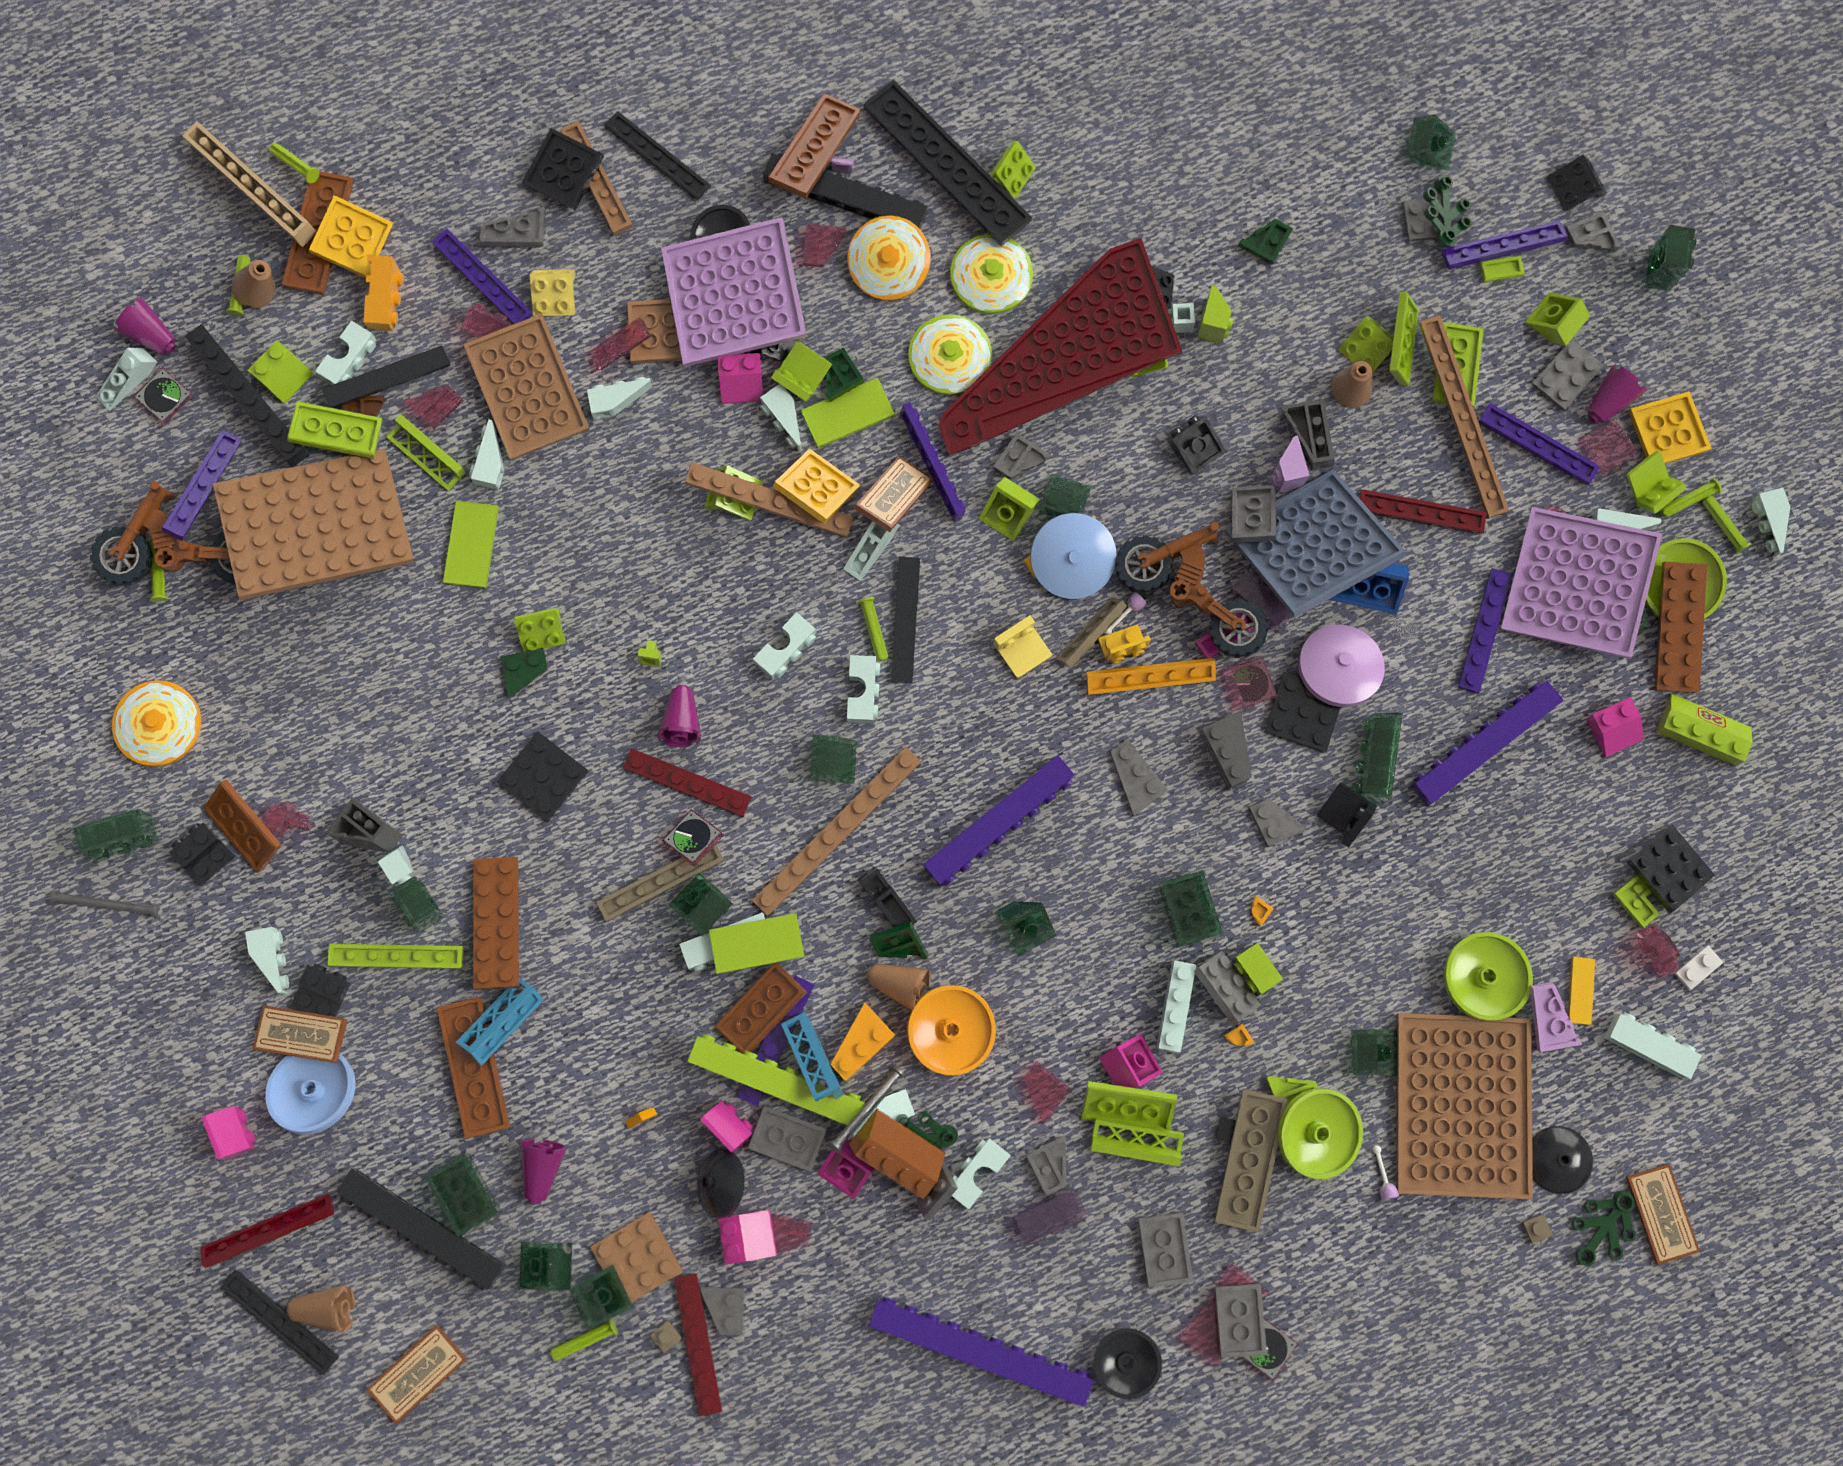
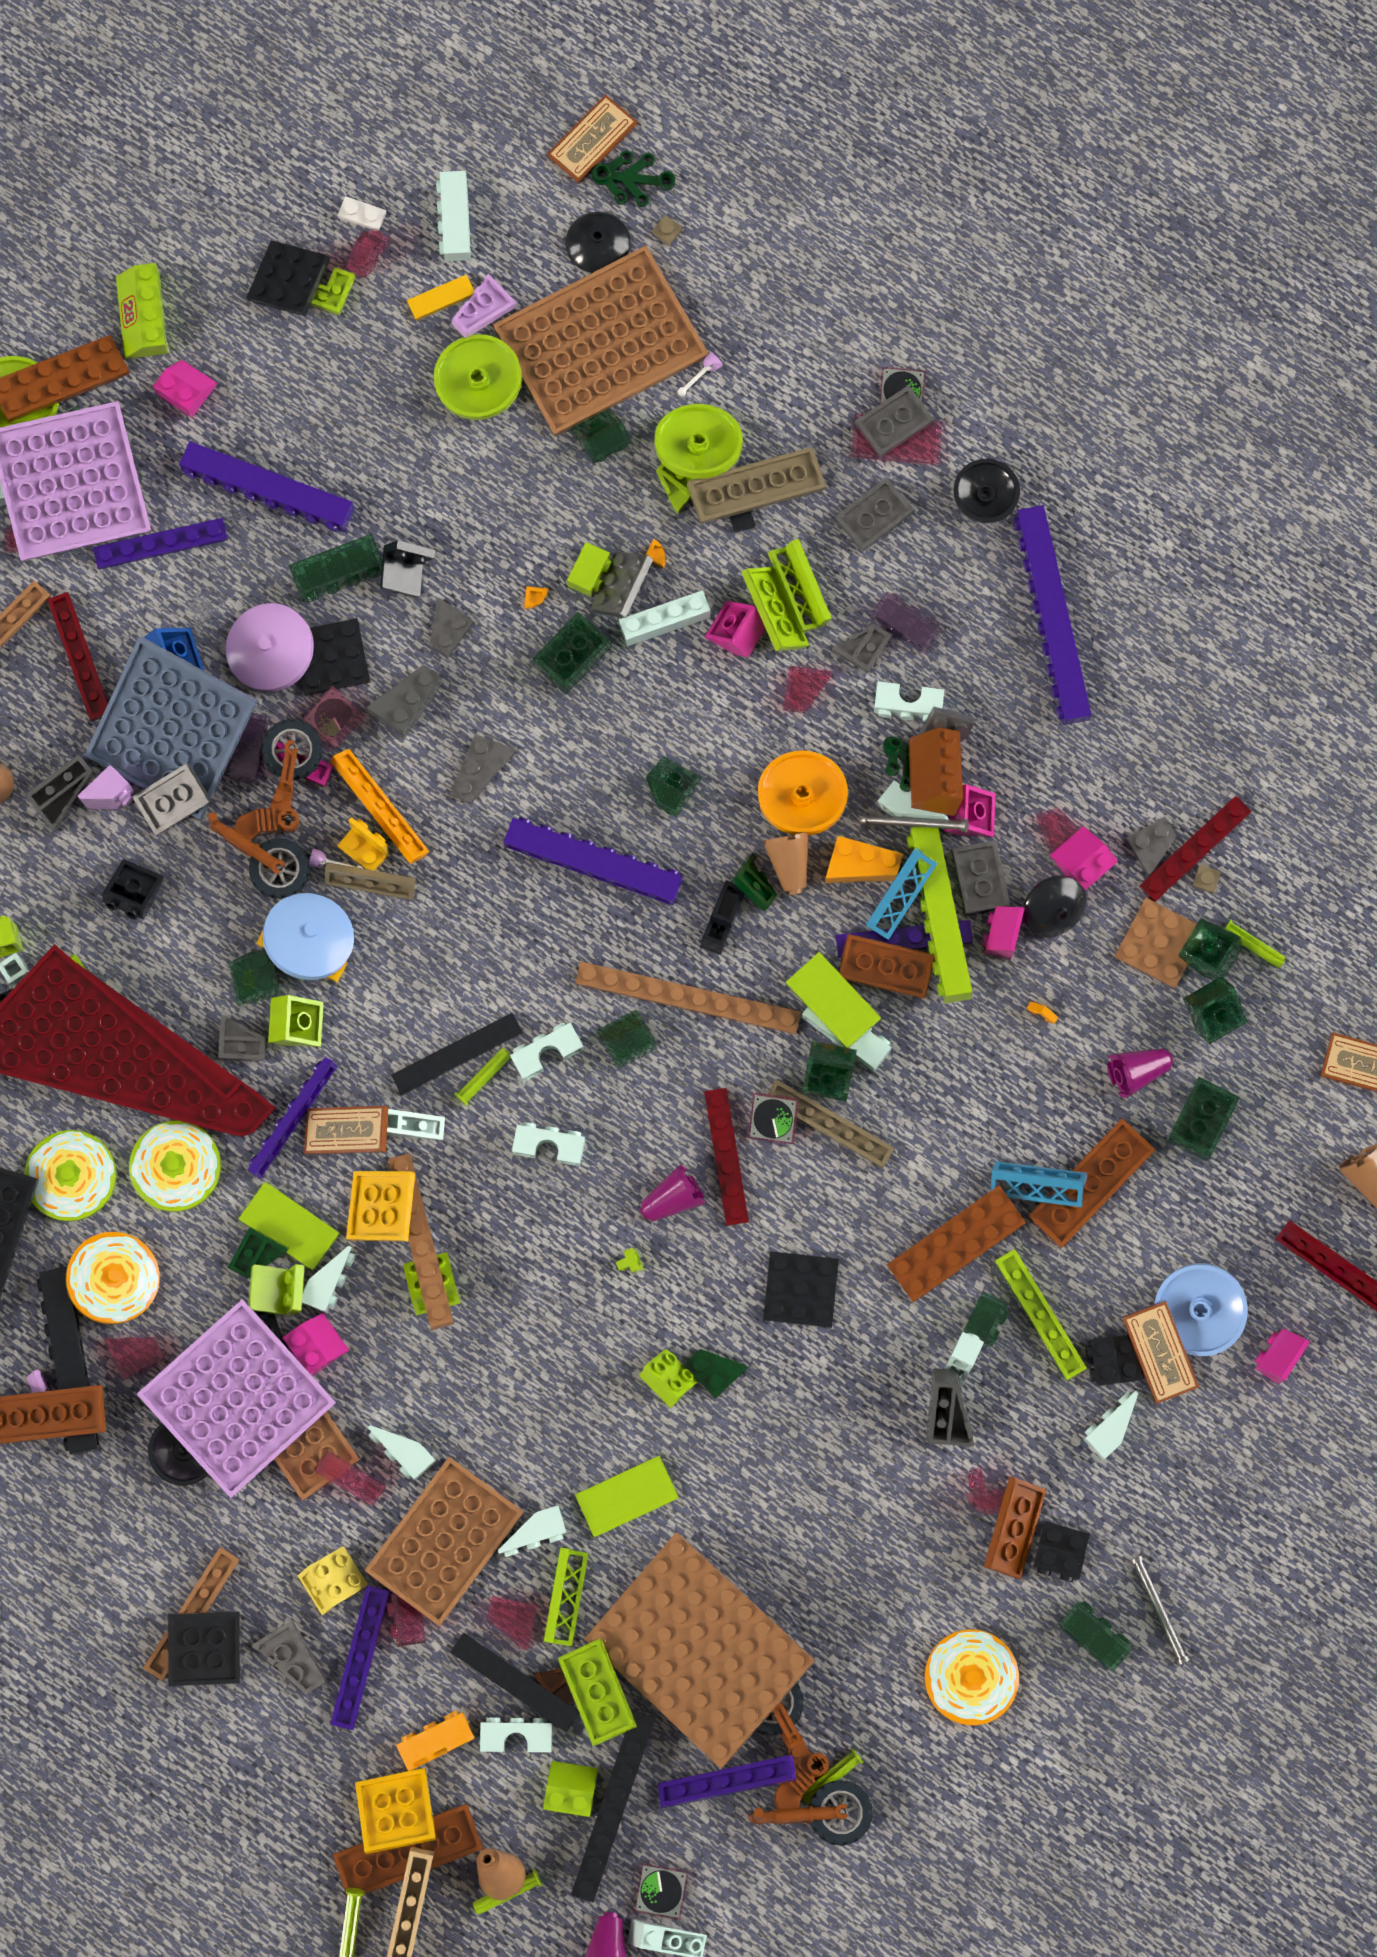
camera: 115 degrees left, 0 degrees up
(421, 1229) = (1253, 1139): black brick -> none
(657, 155) = (133, 1570): black tile -> none
(1022, 647) = (421, 933): light yellow bracket -> none

